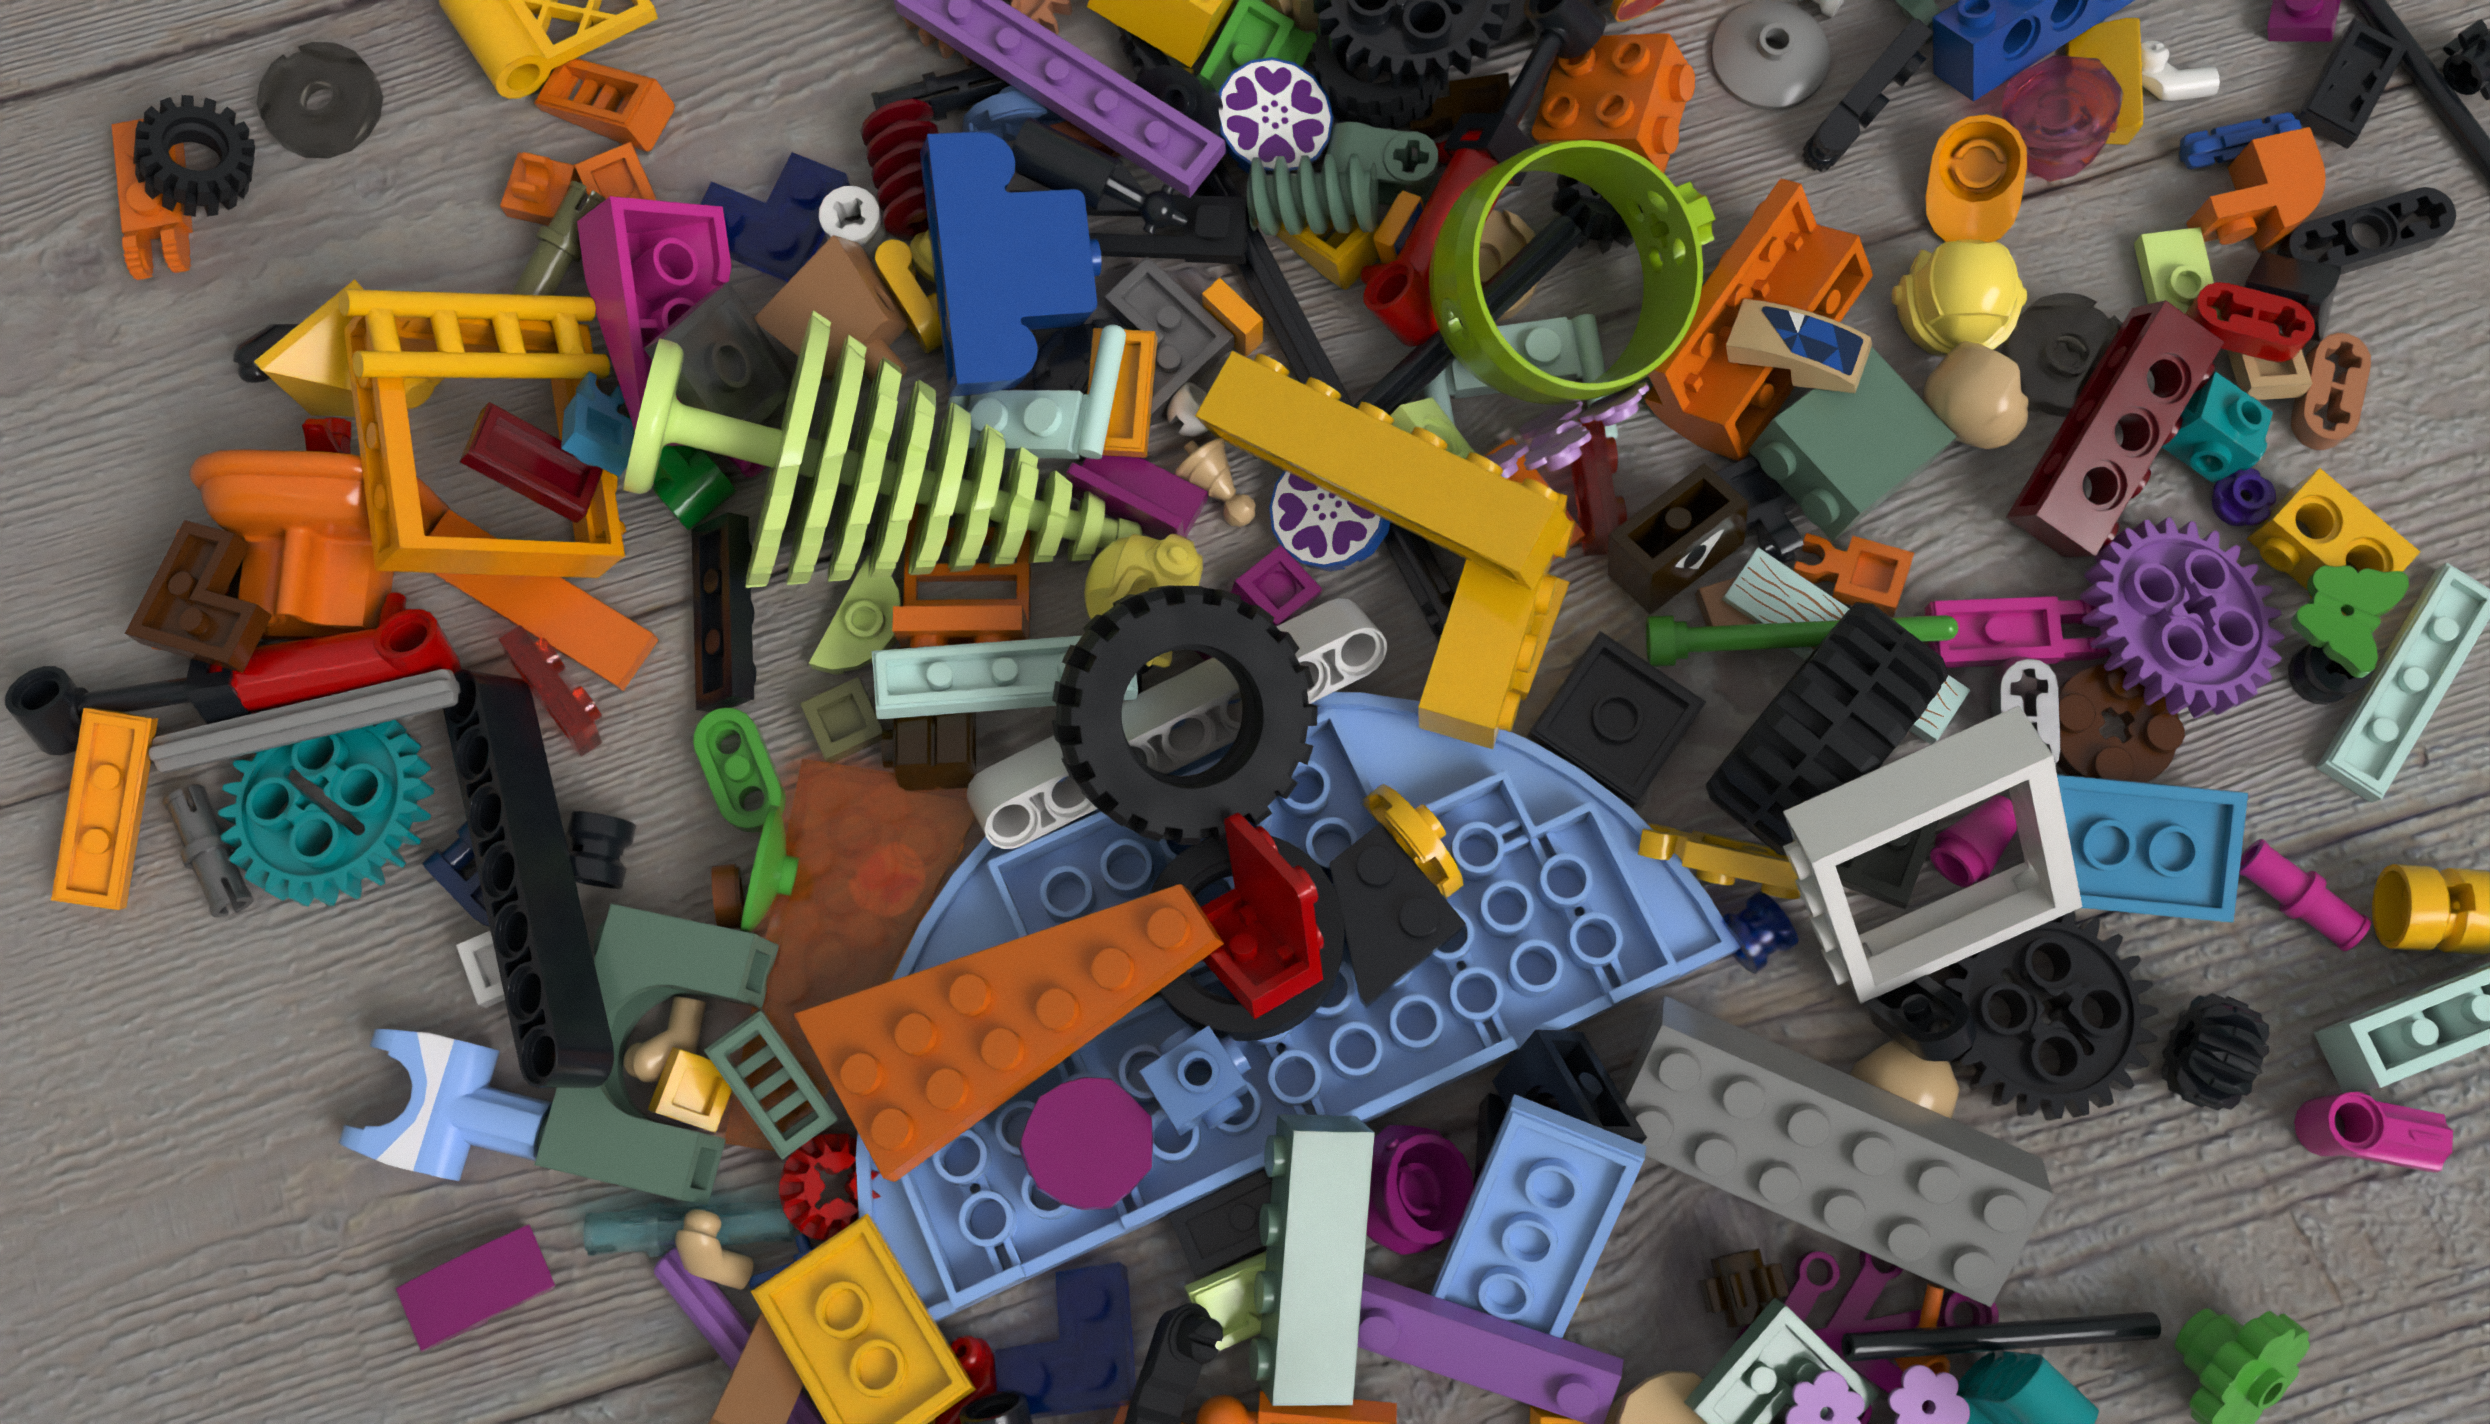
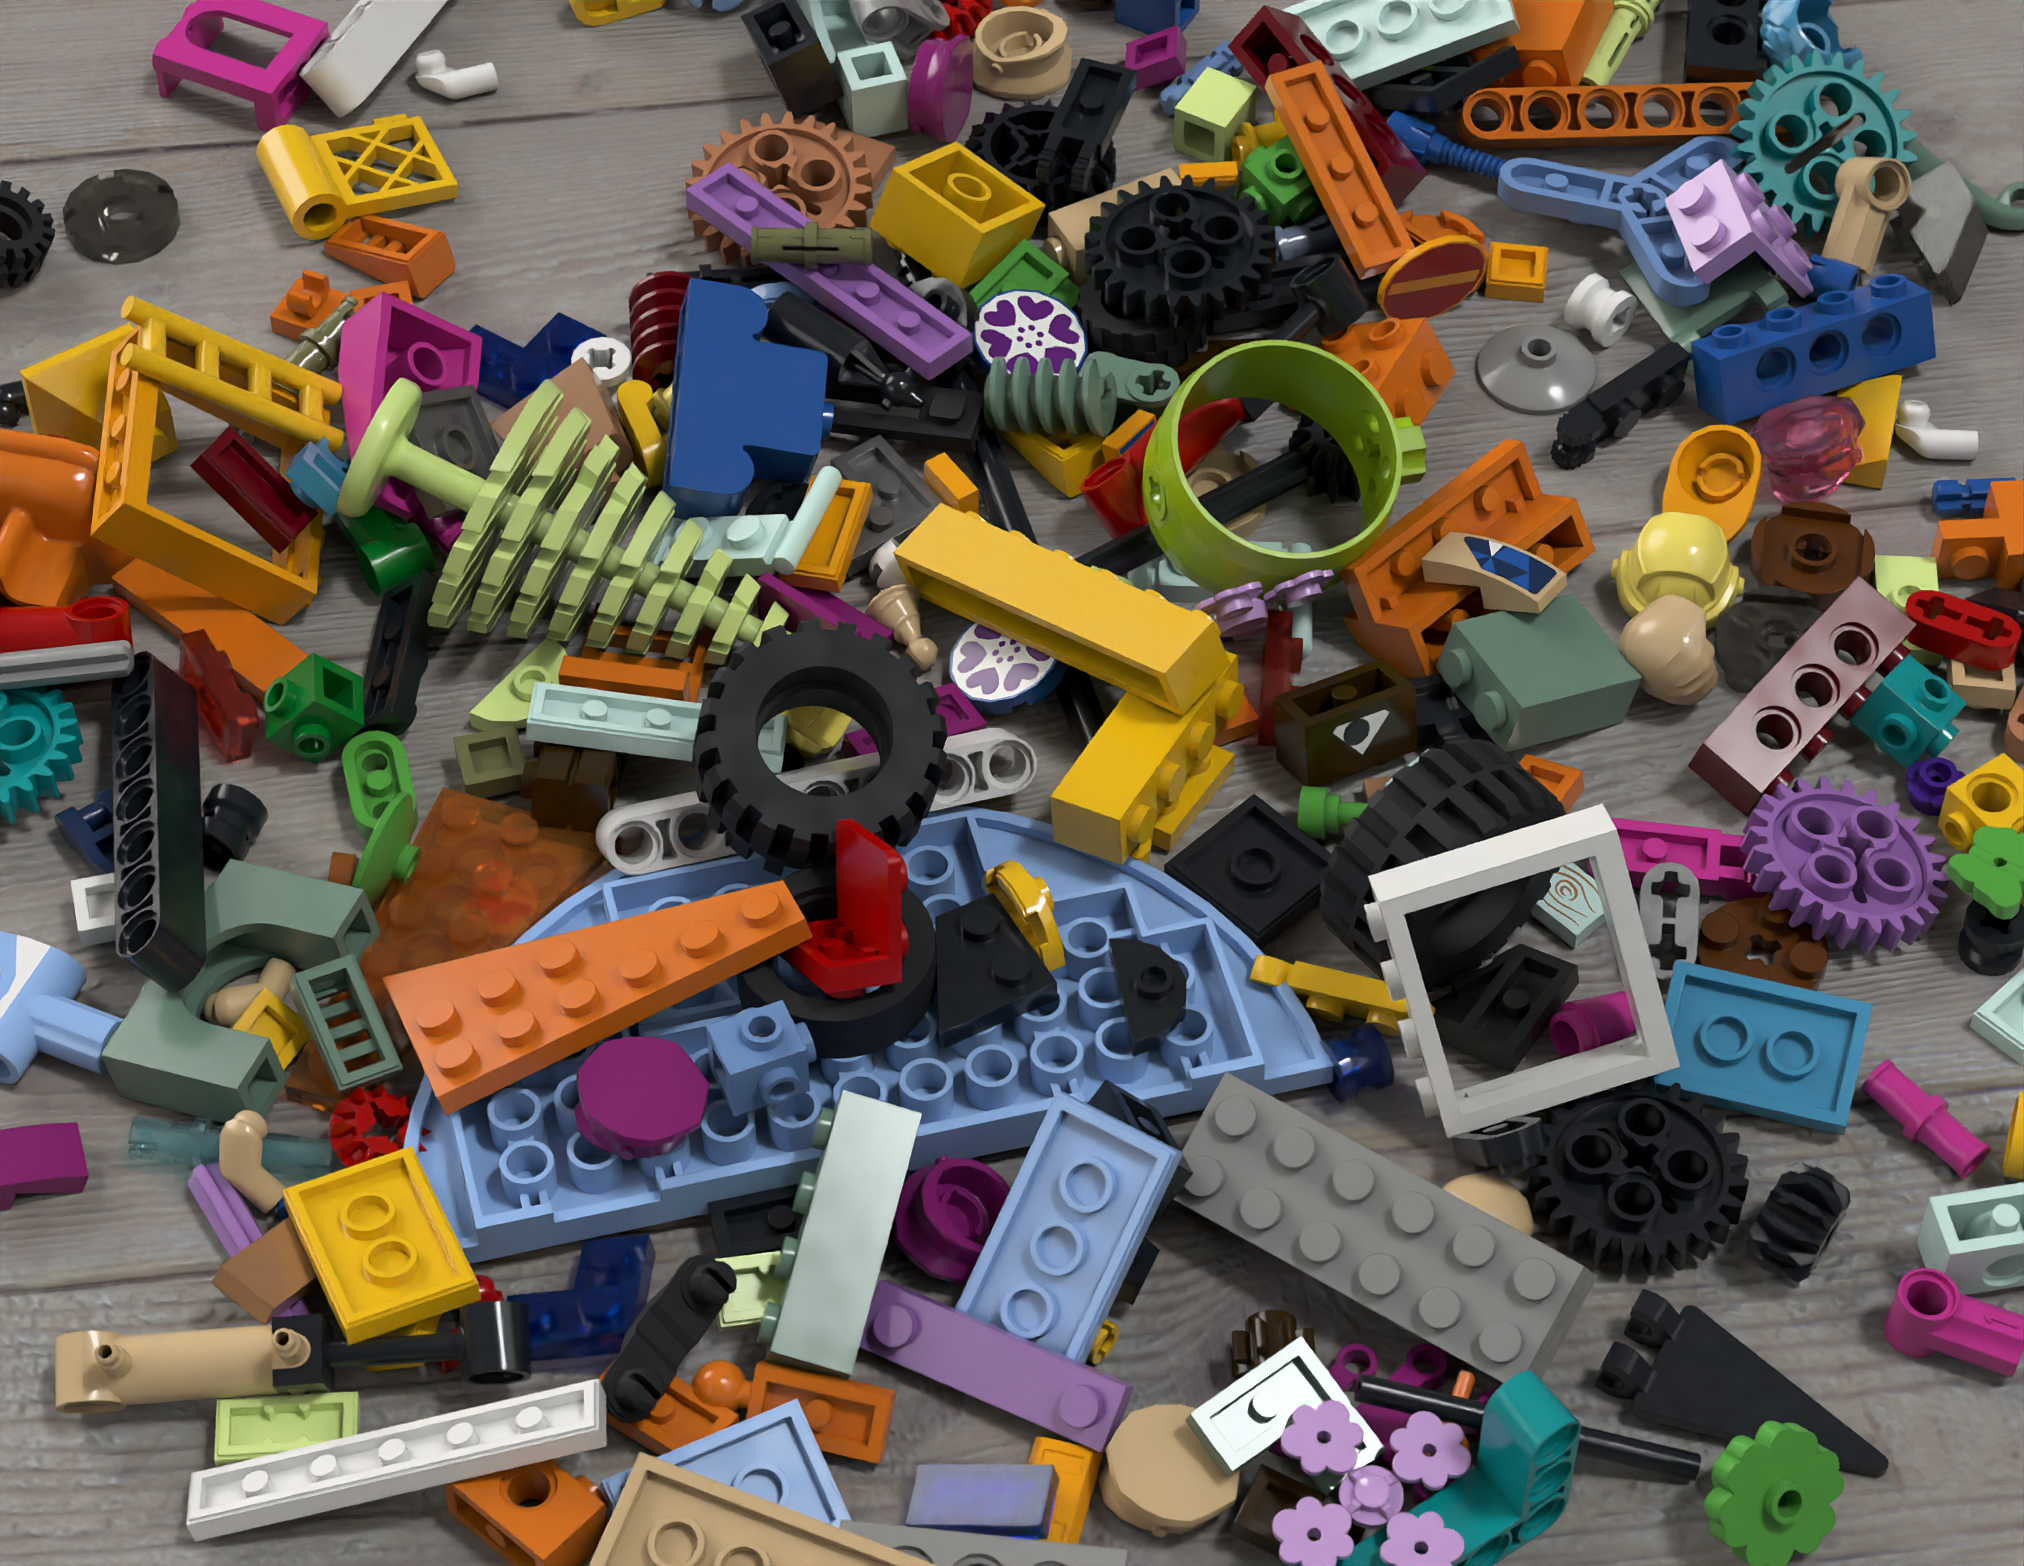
camera: 10 degrees right, 25 degrees down
(653, 698) = (314, 708): none -> green brick
(1040, 59) = (811, 245): none -> olive pin
(1556, 913) = (1149, 992): none -> black plate
(2088, 211) = (1809, 525): none -> reddish brown plate
(2167, 1237) = (1717, 1384): none -> black flag

